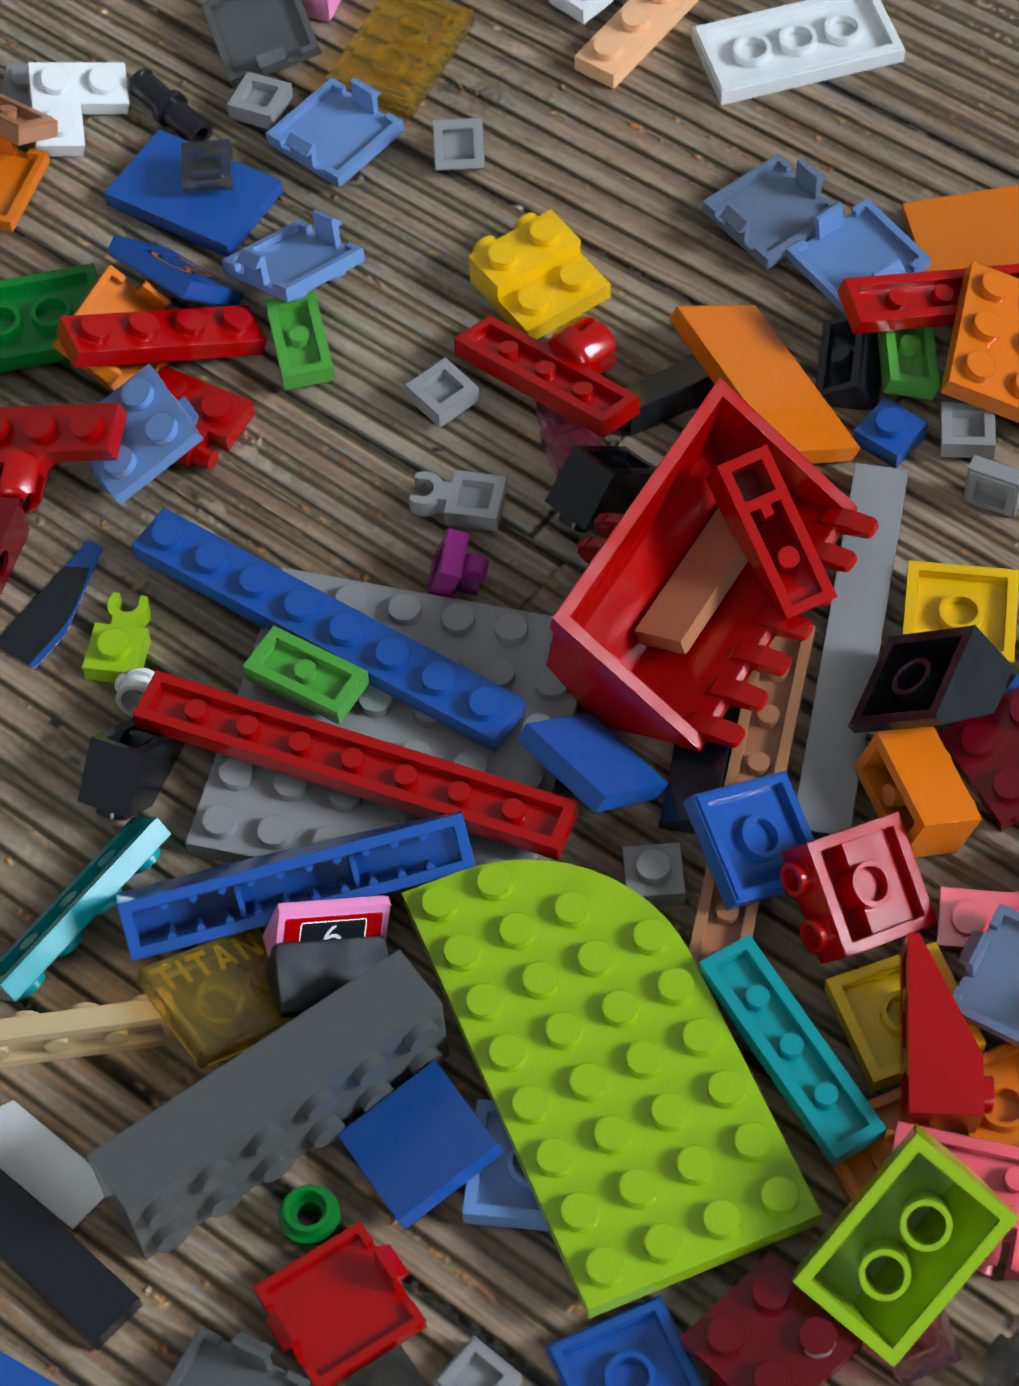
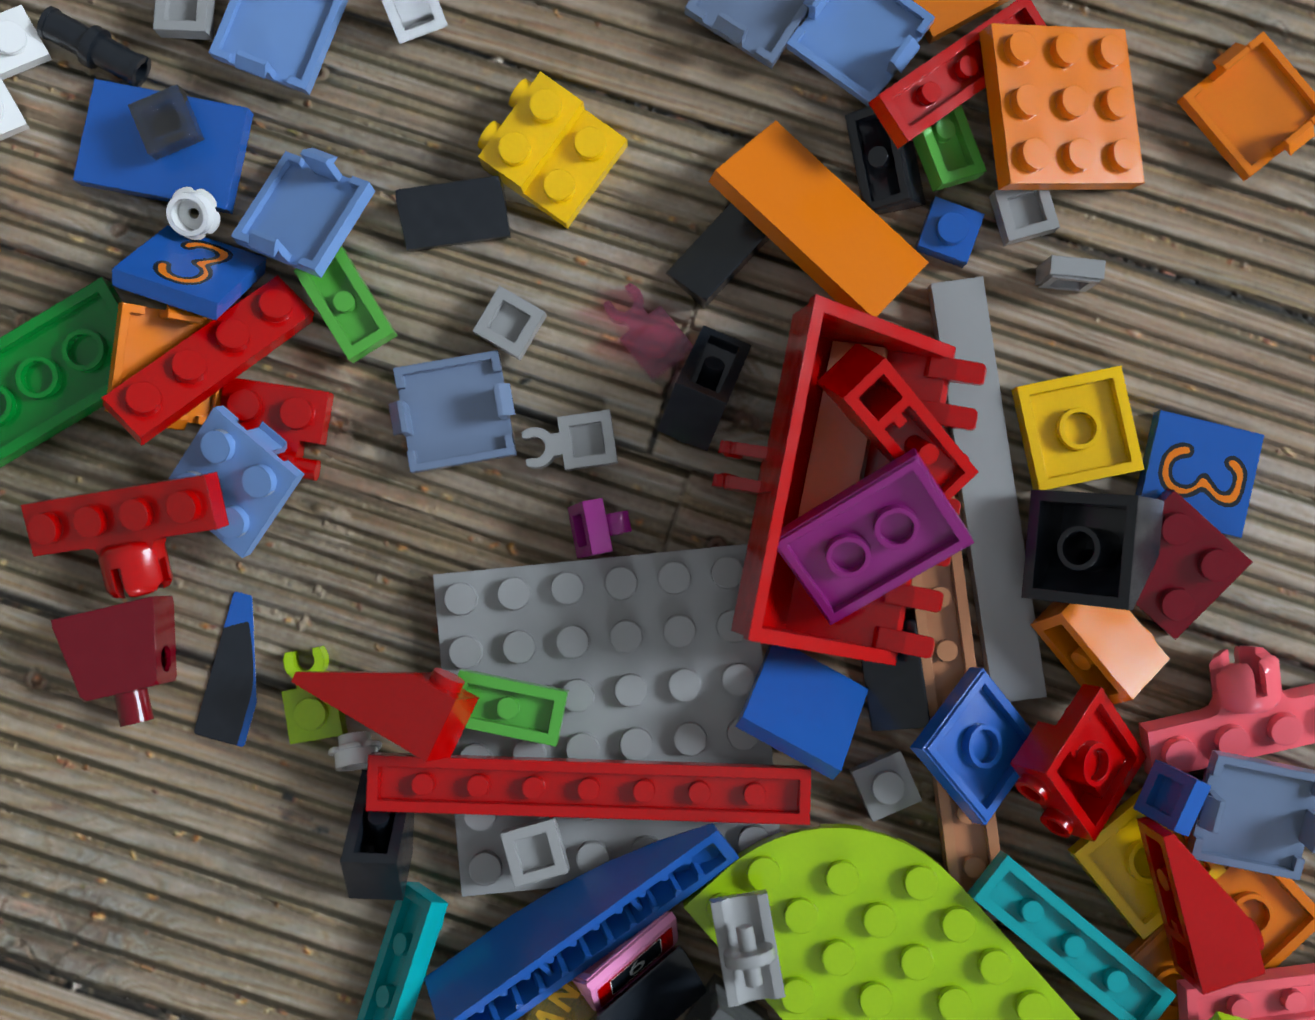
camera: 20 degrees left, 30 degrees up
(189, 228) = (180, 217): none -> white plate
(205, 625) = (408, 708): none -> red slope
(276, 598) = (503, 641): blue plate -> none
(277, 801) = (535, 851): none -> light grey plate
(359, 447) = (454, 411): none -> sand blue piece
(427, 298) = (453, 213): none -> black slope
(449, 910) = (747, 947): none -> light grey hips
(555, 371) = (612, 271): red plate -> none
(711, 617) = (872, 537): none -> magenta tile
(946, 929) = (1172, 797): none -> blue plate

